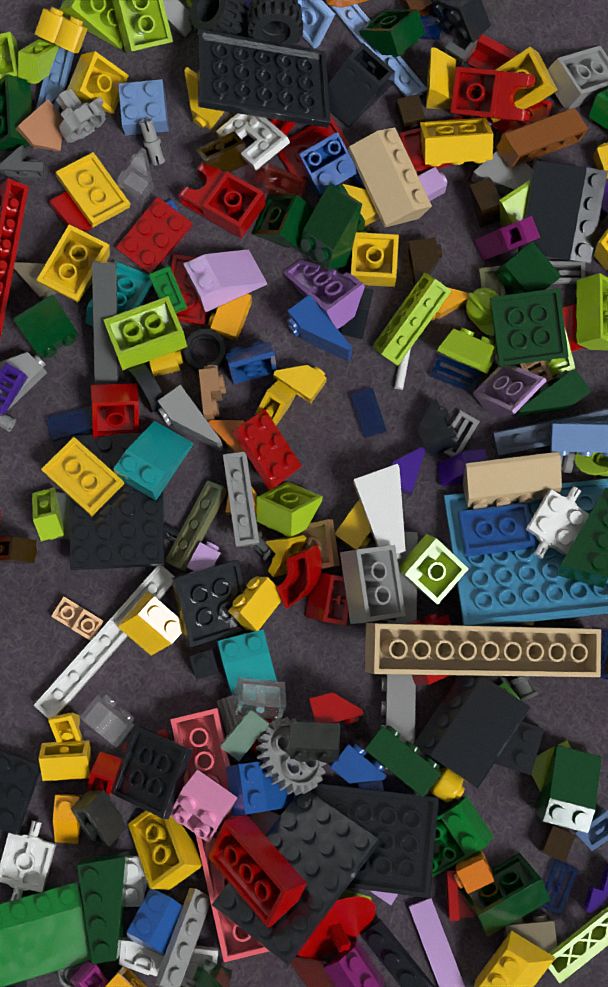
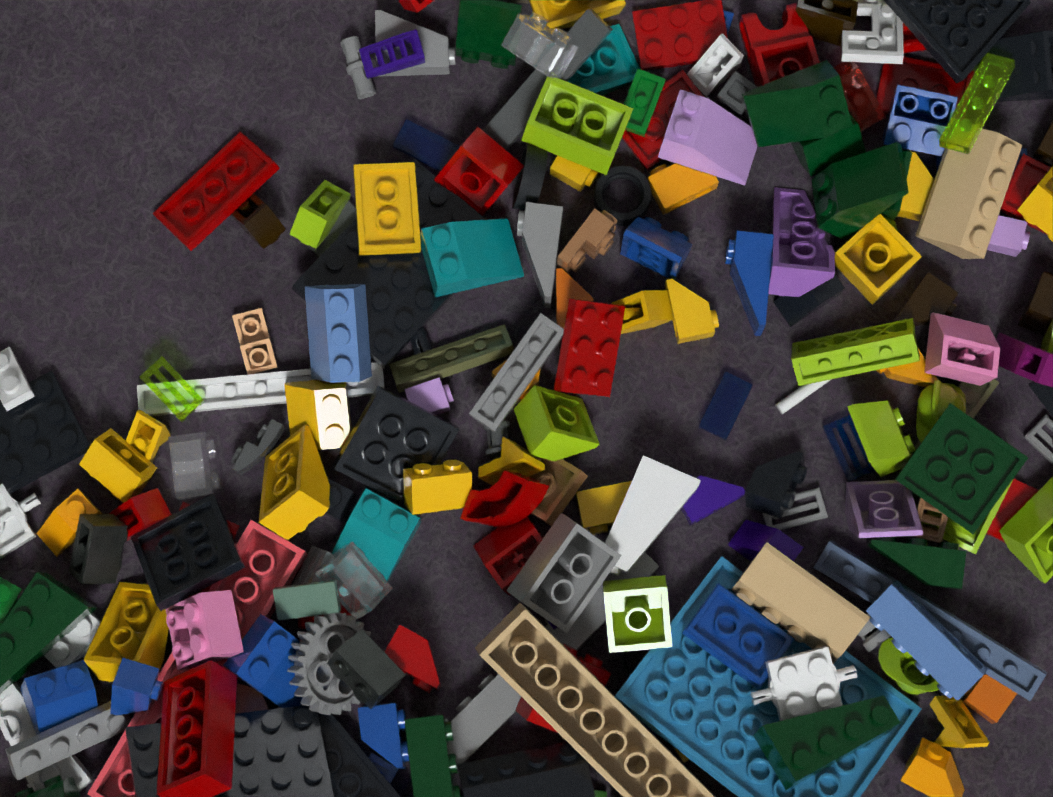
camera: 40 degrees right, 0 degrees up
(76, 689) = (189, 407): none -> clear neon green tile
(84, 307) = (540, 45): none -> clear brick
(120, 570) = (338, 332): none -> medium blue slope
(135, 683) = (250, 455): none -> dark grey slope
(176, 677) = (293, 485): none -> yellow slope
(189, 234) = (715, 65): none -> white slope
(195, 877) = (134, 687): none -> blue slope
(216, 238) = (732, 92): none -> dark grey panel
(257, 213) = (798, 107): none -> dark green slope
(350, 127) = (977, 103): none -> clear neon green tile
(467, 265) = (961, 350): none -> bright pink slope
(527, 271) = (1015, 412): dark green slope -> none

